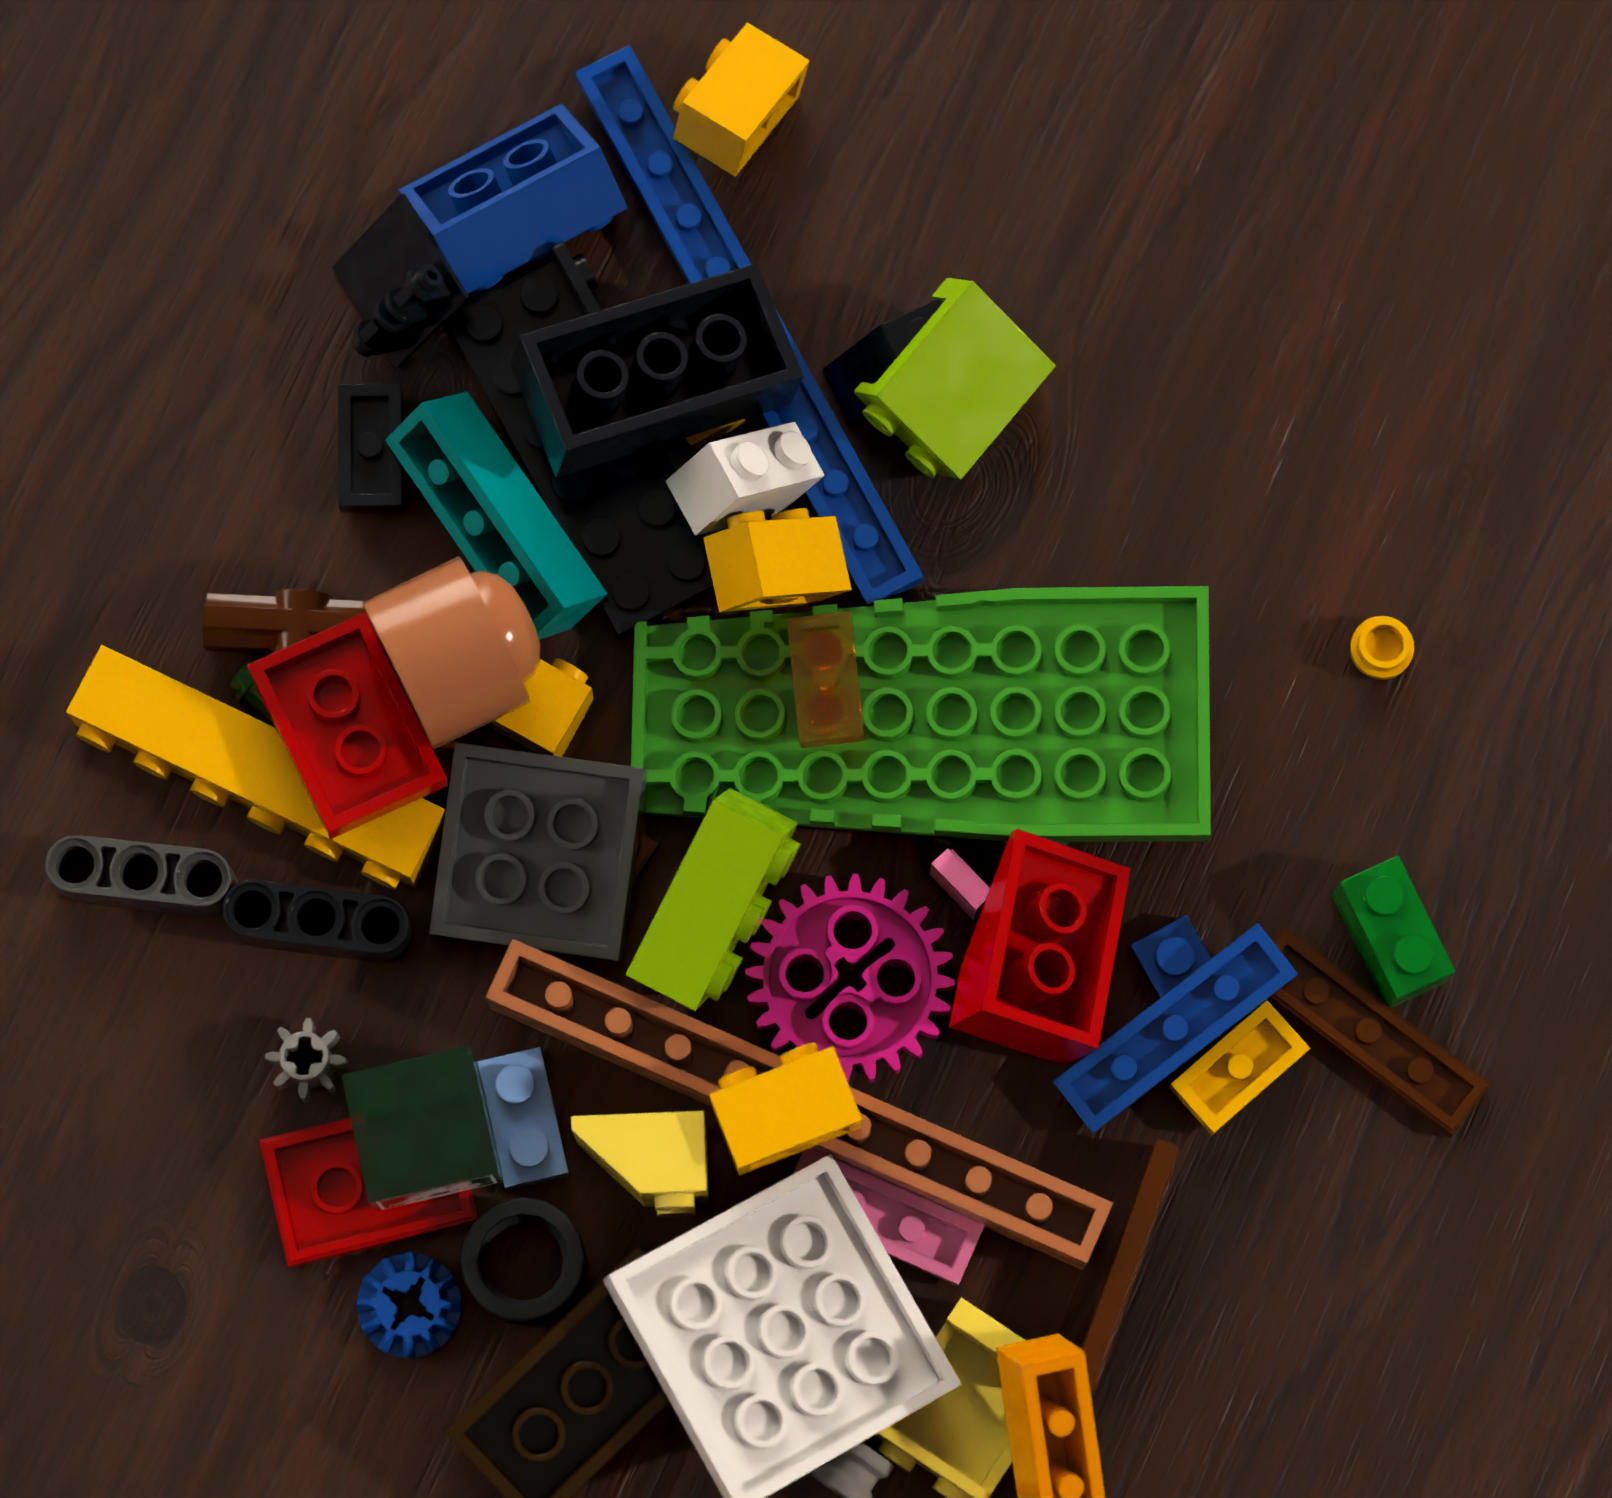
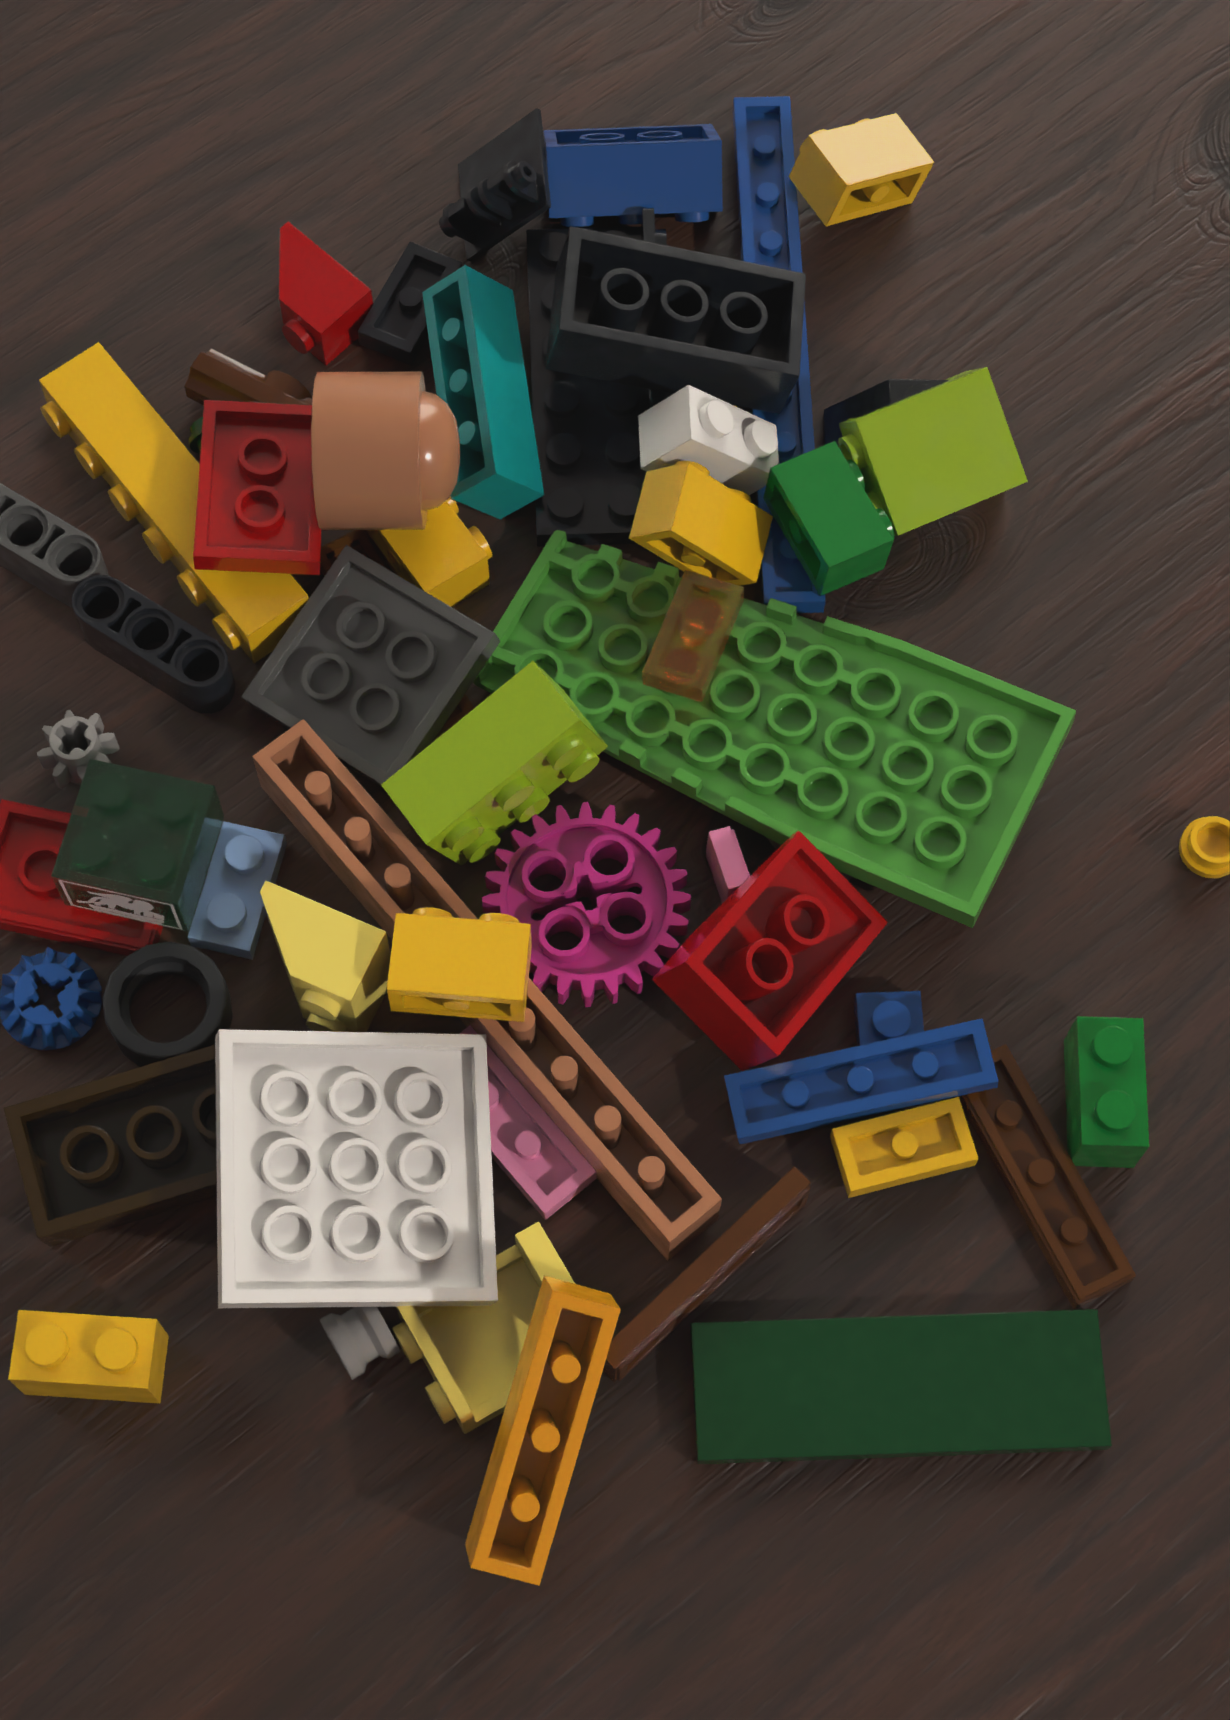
camera: 25 degrees right, 10 degrees down
(280, 487) = (318, 298): none -> red slope
(891, 496) = (829, 517): none -> green brick
(1332, 1282) = (899, 1386): none -> dark green tile

